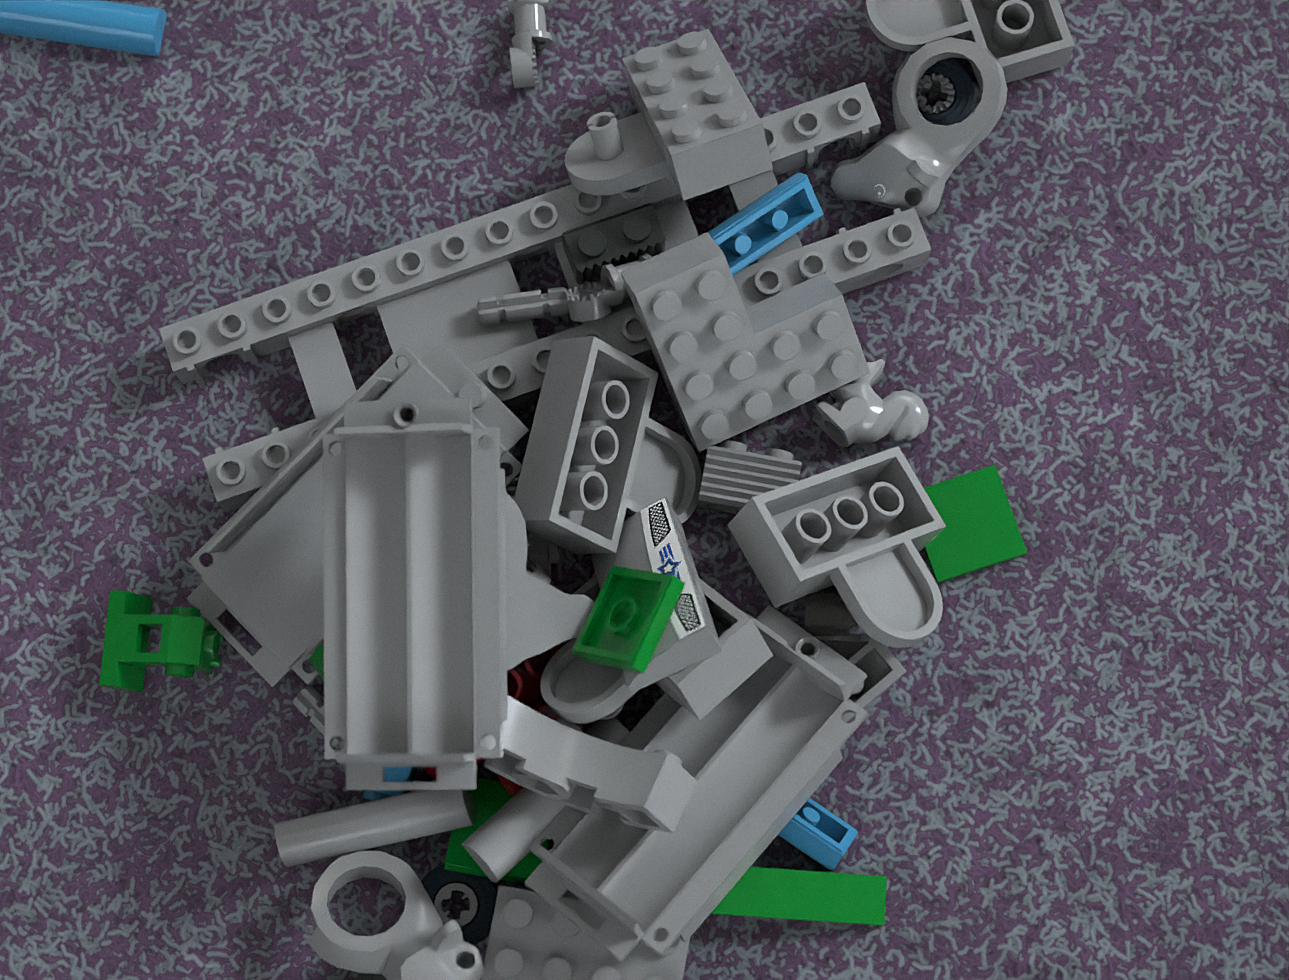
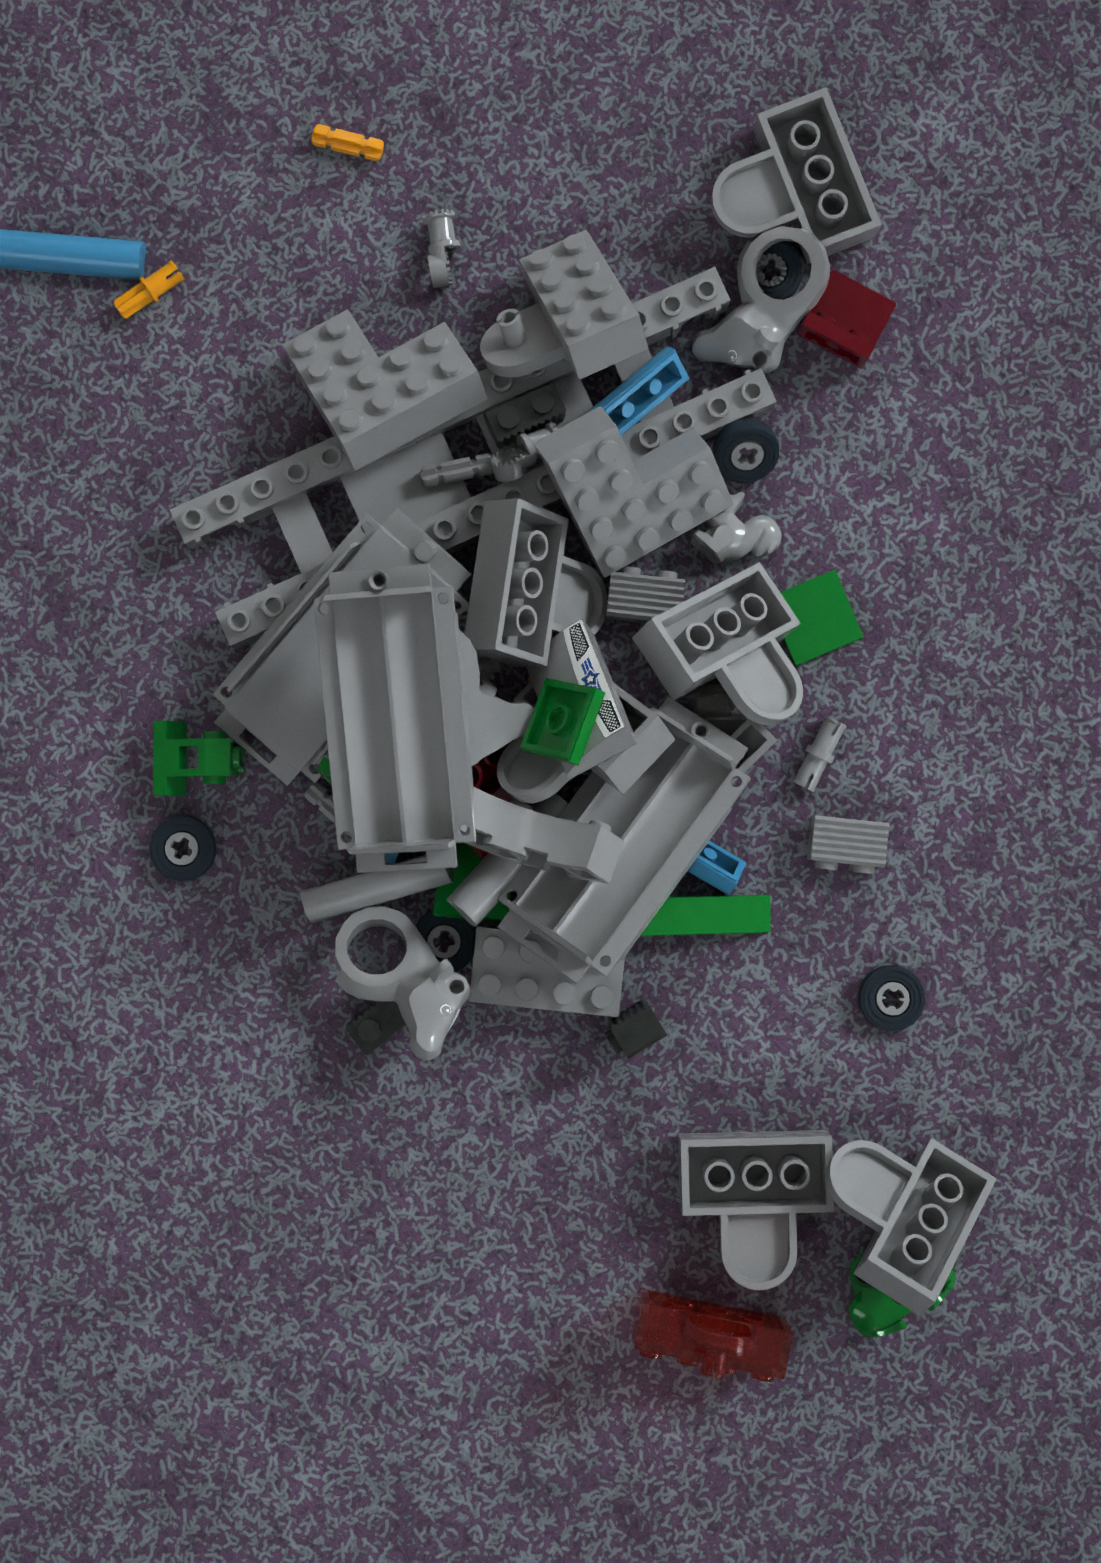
camera: 10 degrees left, 10 degrees up
(134, 783) = (201, 842): none -> black bush
(162, 67) = (148, 290): none -> light orange axle
(441, 211) = (385, 399): none -> light grey brick
(891, 287) = (752, 435): none -> black bush
(962, 697) = (819, 753): none -> light grey pin
(992, 815) = (848, 842): none -> light grey brick
(1026, 159) = (847, 319): none -> dark red bracket

